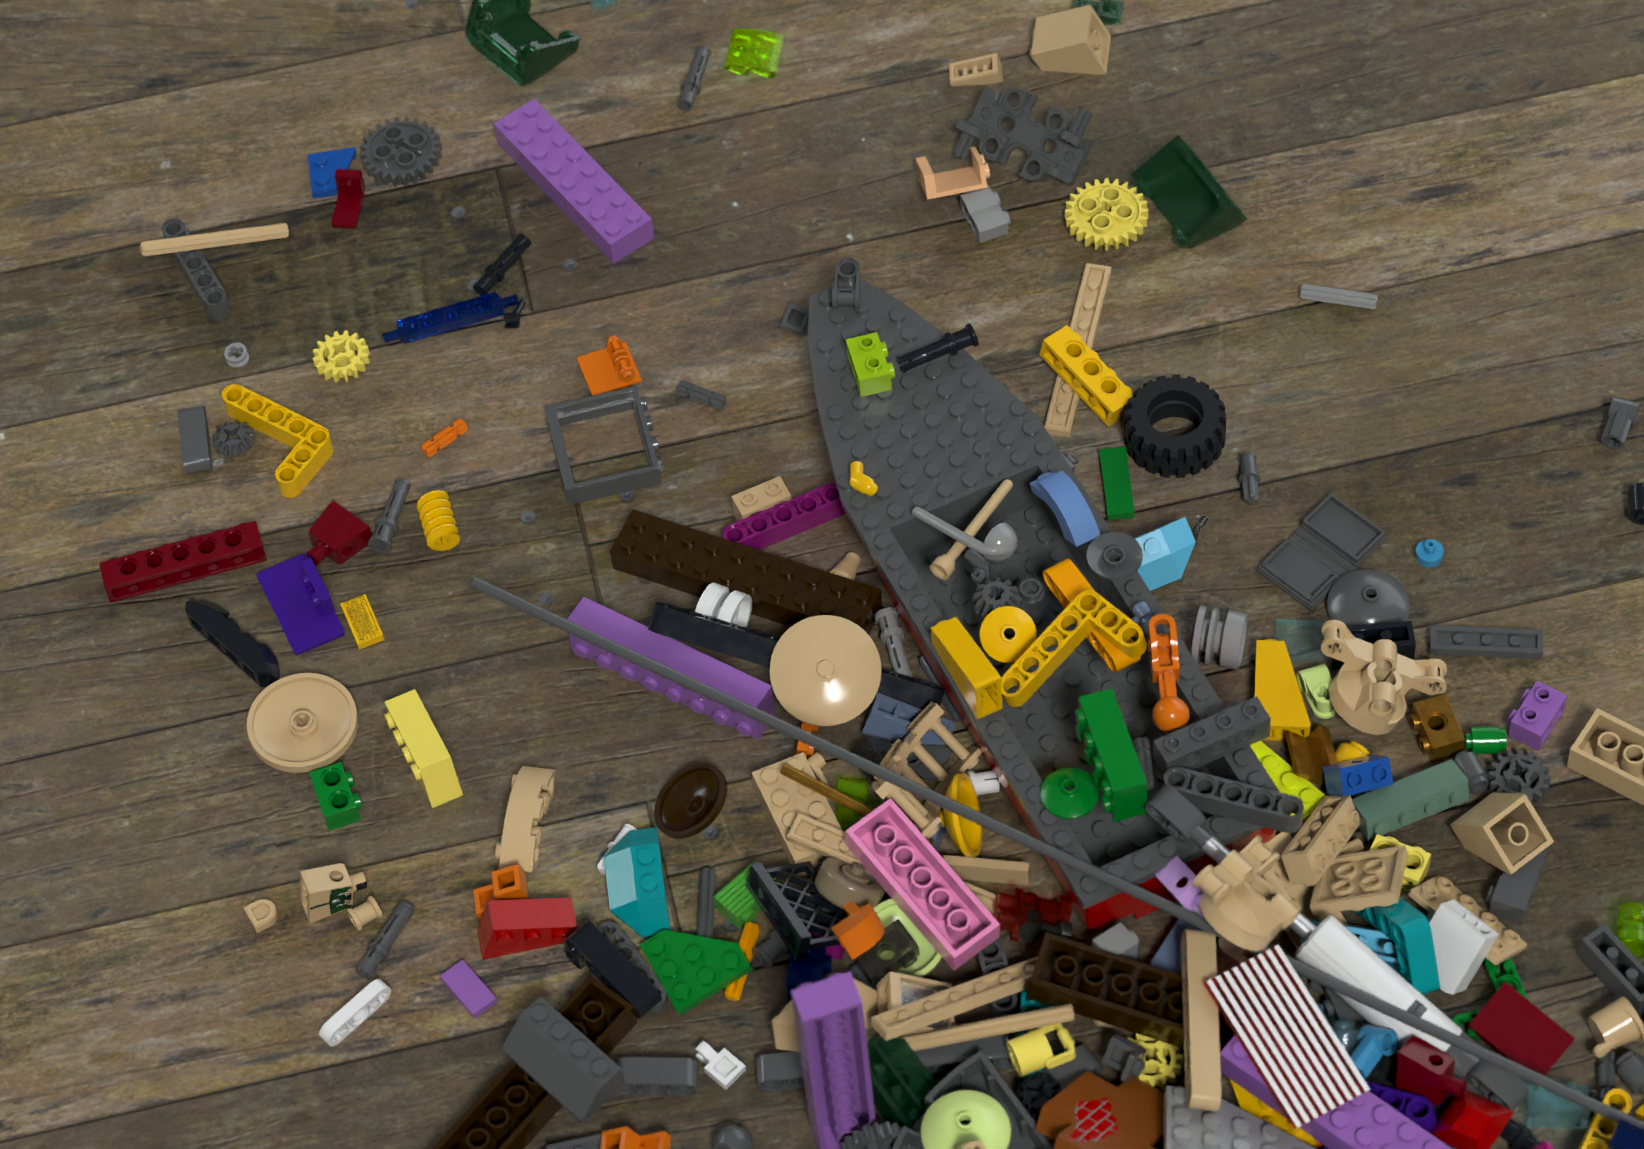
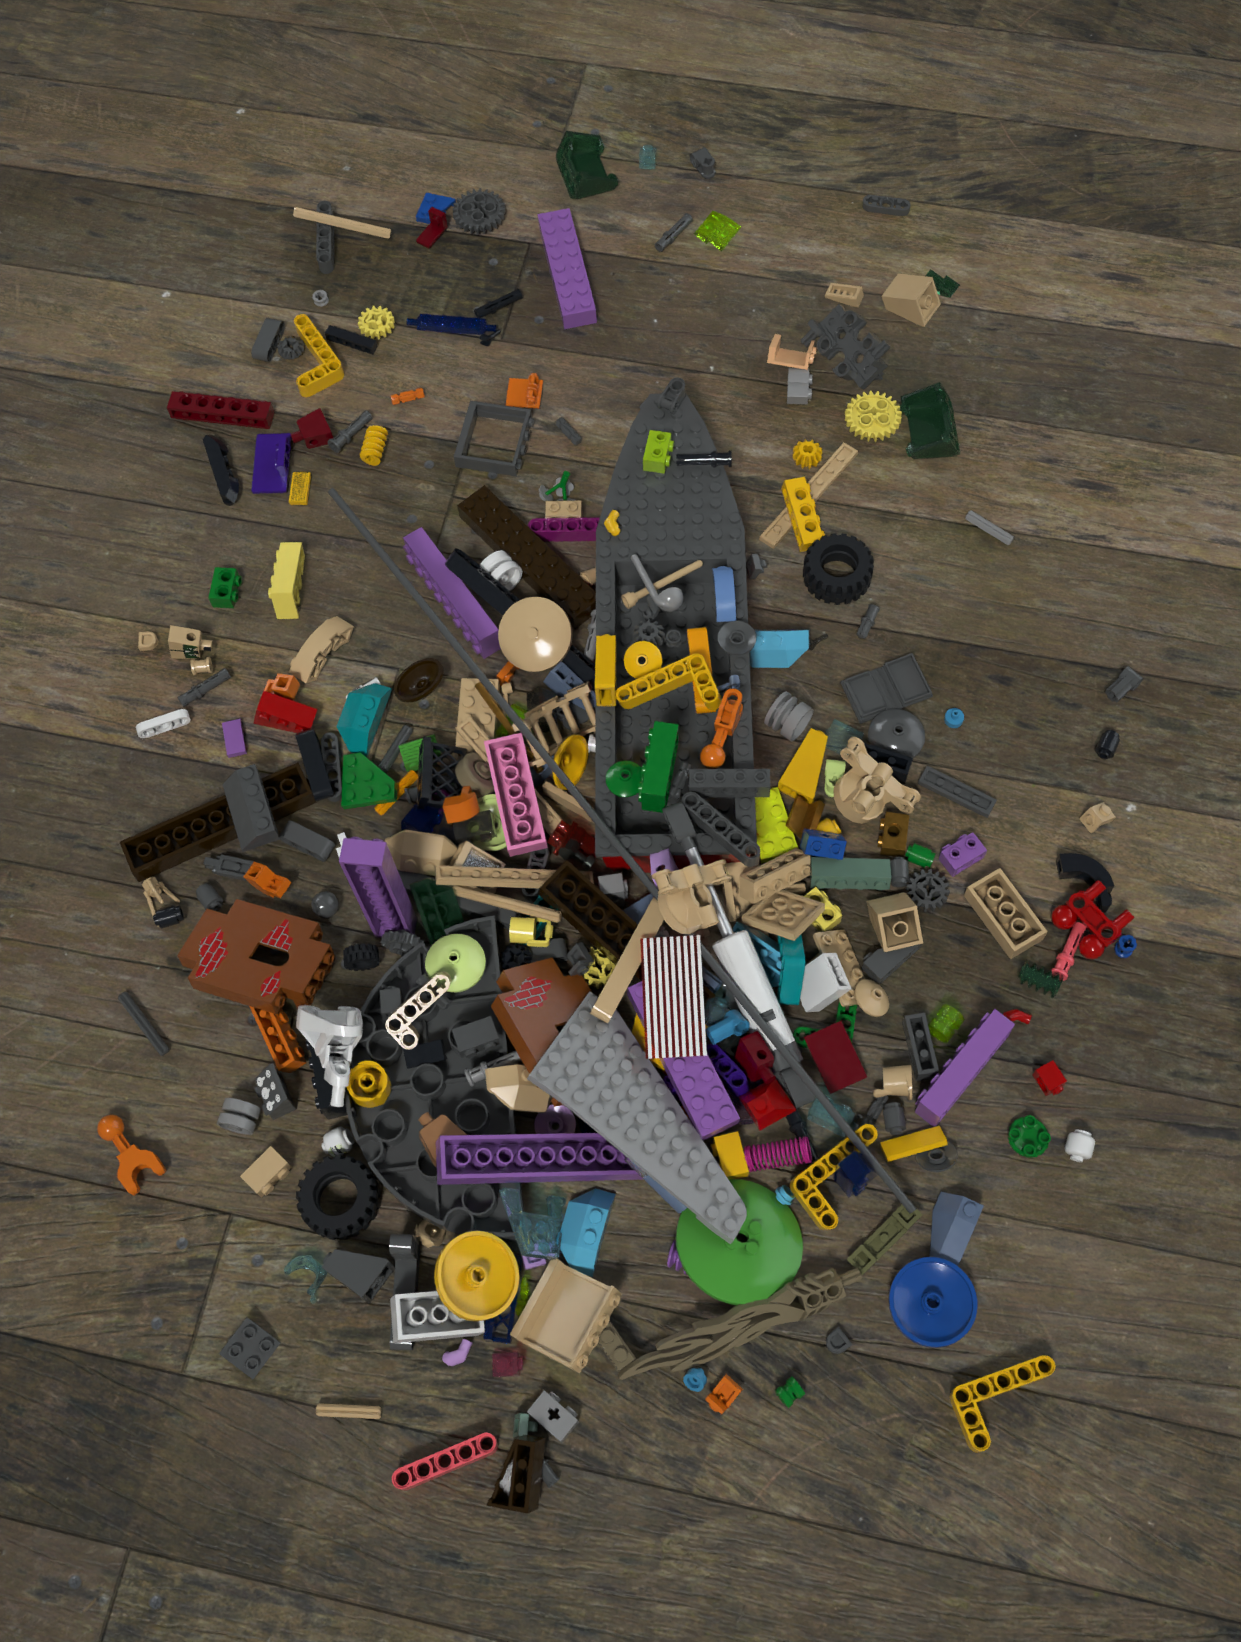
camera: 25 degrees right, 10 degrees up
(302, 722) = (229, 535): tan dish -> none
(317, 393) = (351, 339): none -> black piece
(737, 472) = (561, 487): none -> plant
(1047, 296) = (807, 454): none -> yellow gear
(1116, 483) = (784, 590): green tile -> none
(1525, 940) = (871, 998): none -> tan dish

